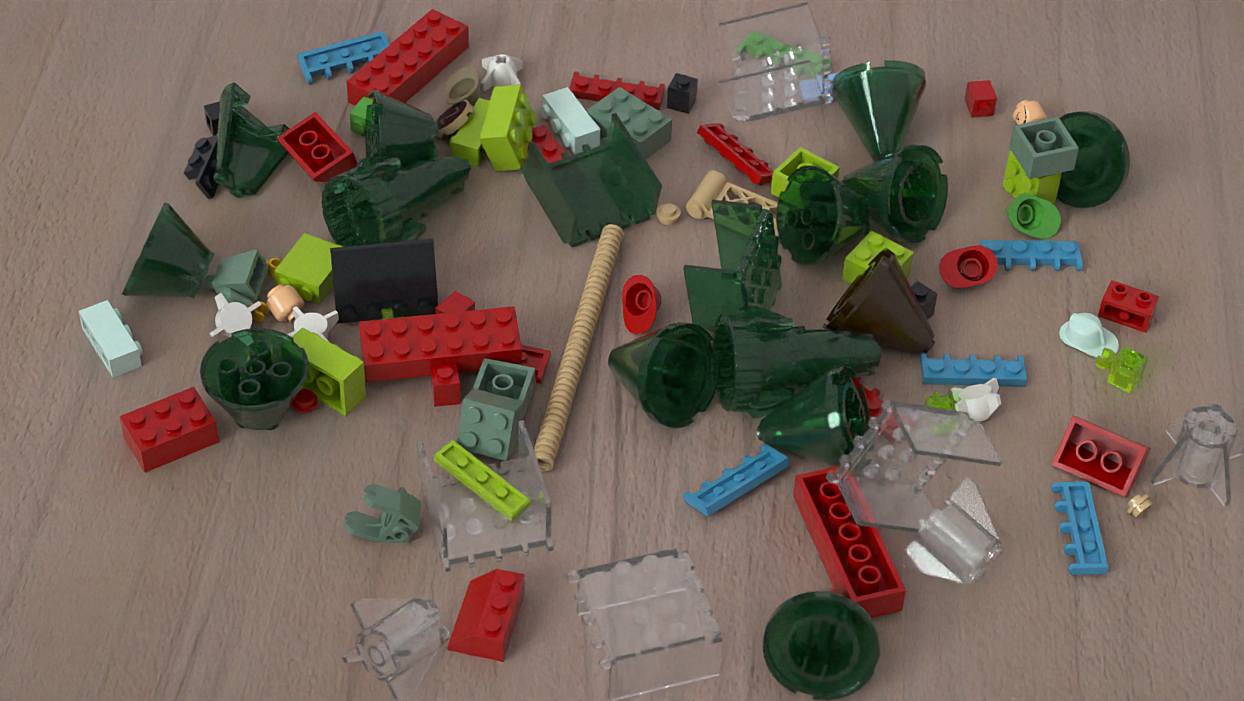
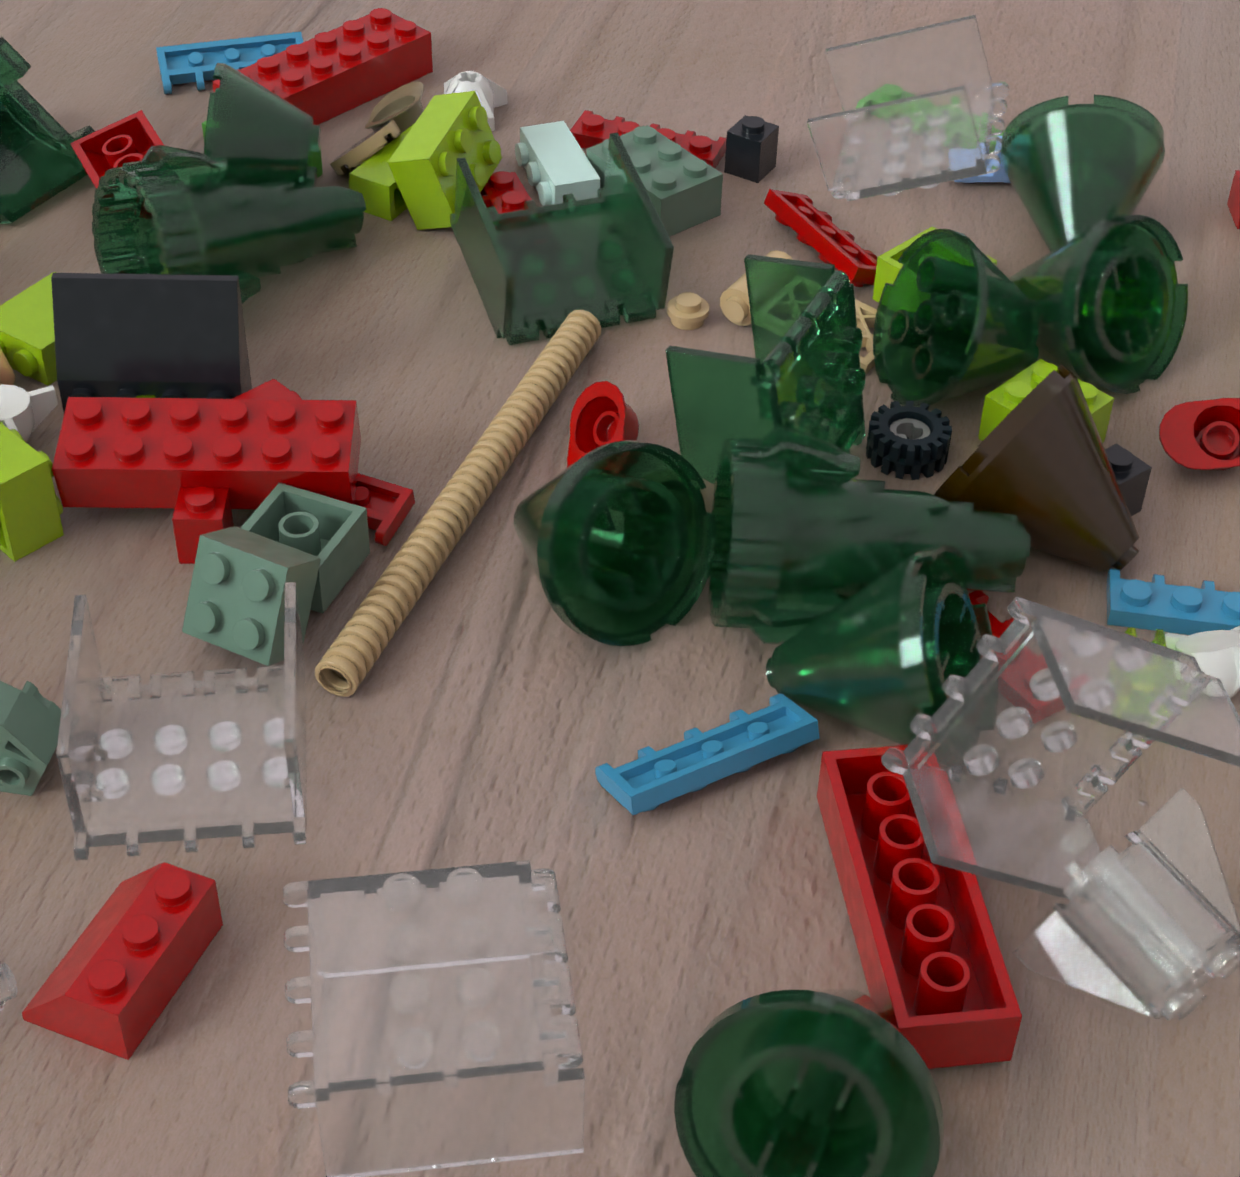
camera: 10 degrees right, 5 degrees down
(482, 480) = (207, 695): lime tile -> none
(795, 289) = (908, 440): none -> black bush

